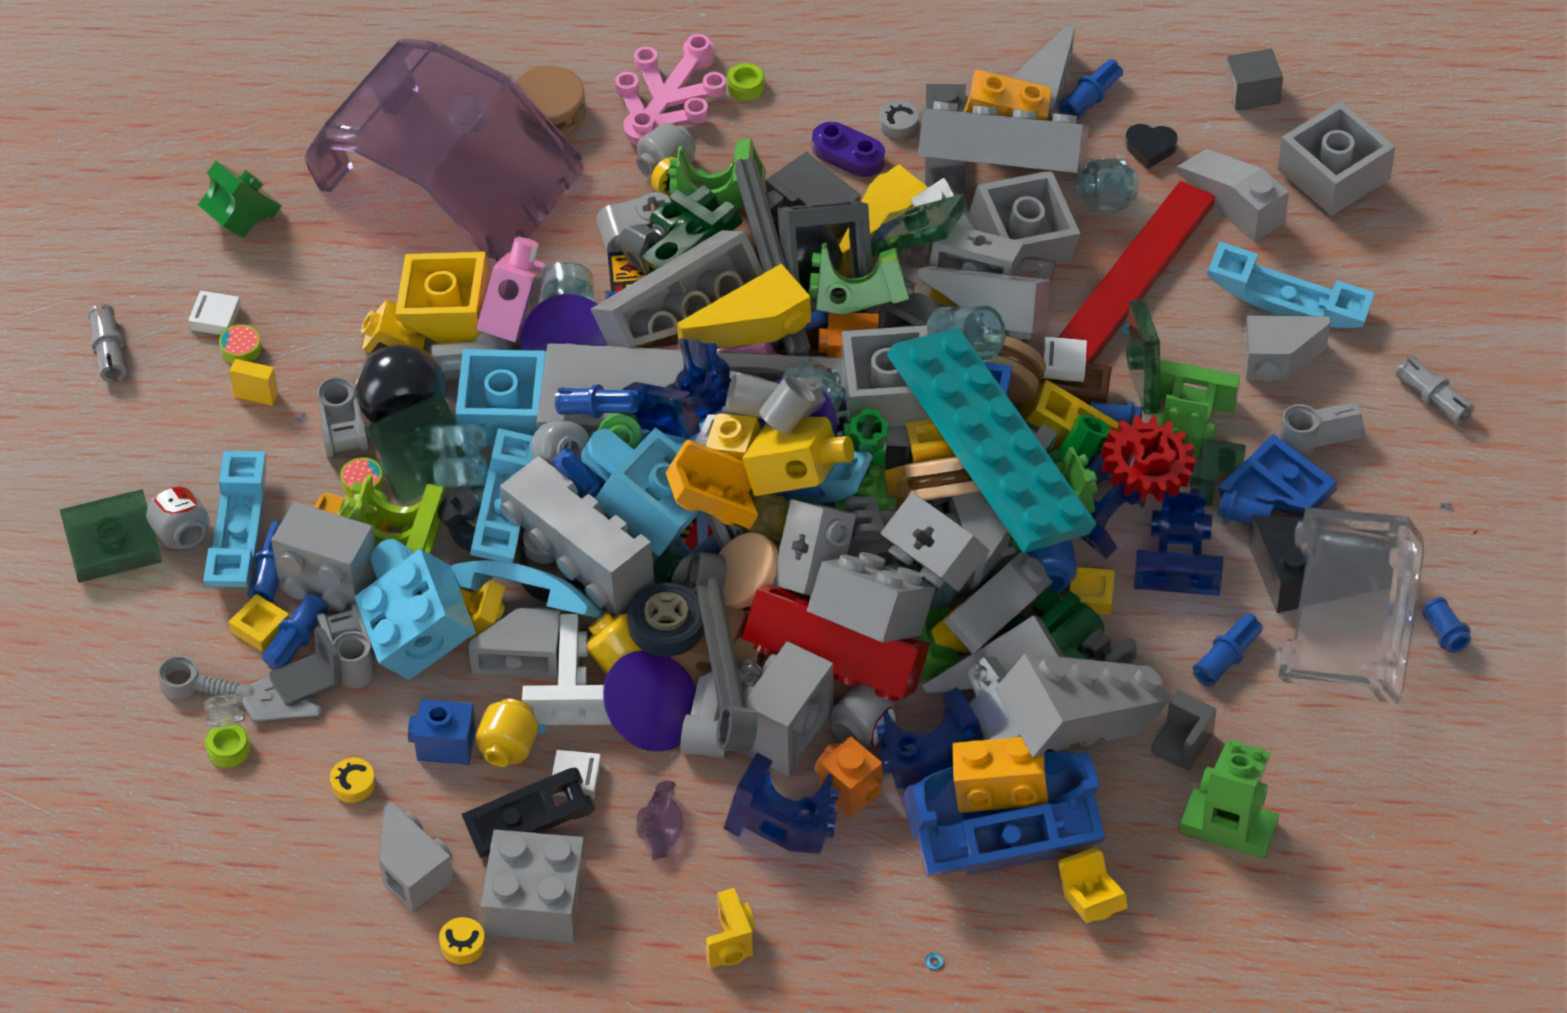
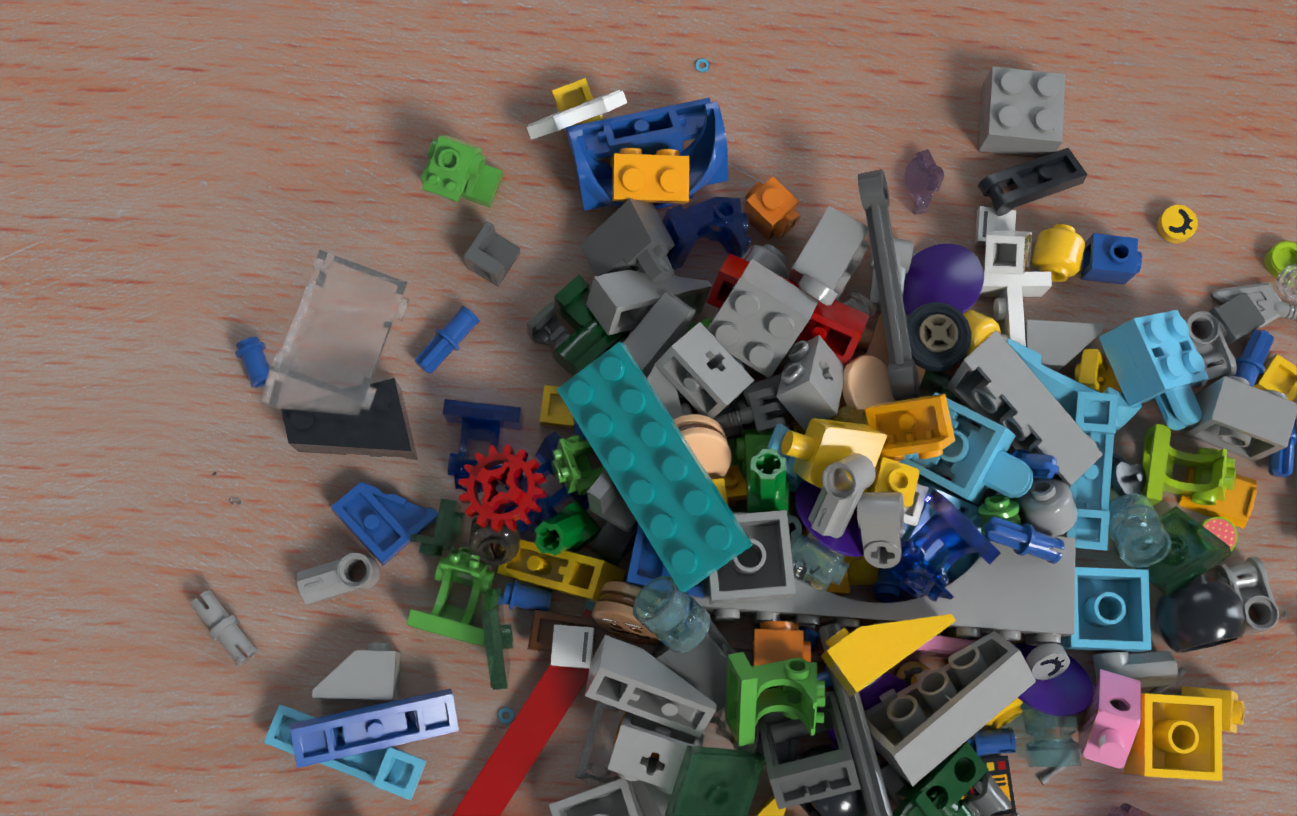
camera: 175 degrees right, 25 degrees up
(410, 860) = (1123, 143): light grey slope -> none
(462, 940) = (1076, 78): yellow tile -> none
(571, 716) = (1008, 252): none -> white brick
(576, 337) = (1048, 661): none -> light grey tile
(736, 940) = (858, 81): yellow bracket -> none
(778, 818) = (831, 163): clear blue tile -> none
(806, 626) = (817, 290): none -> light grey tile
(1079, 700) = (579, 232): light grey wedge -> none
(1079, 864) = (576, 114): none -> white tile
(1241, 508) = (417, 487): blue pin -> none
(1261, 294) = (373, 727): none -> hinge

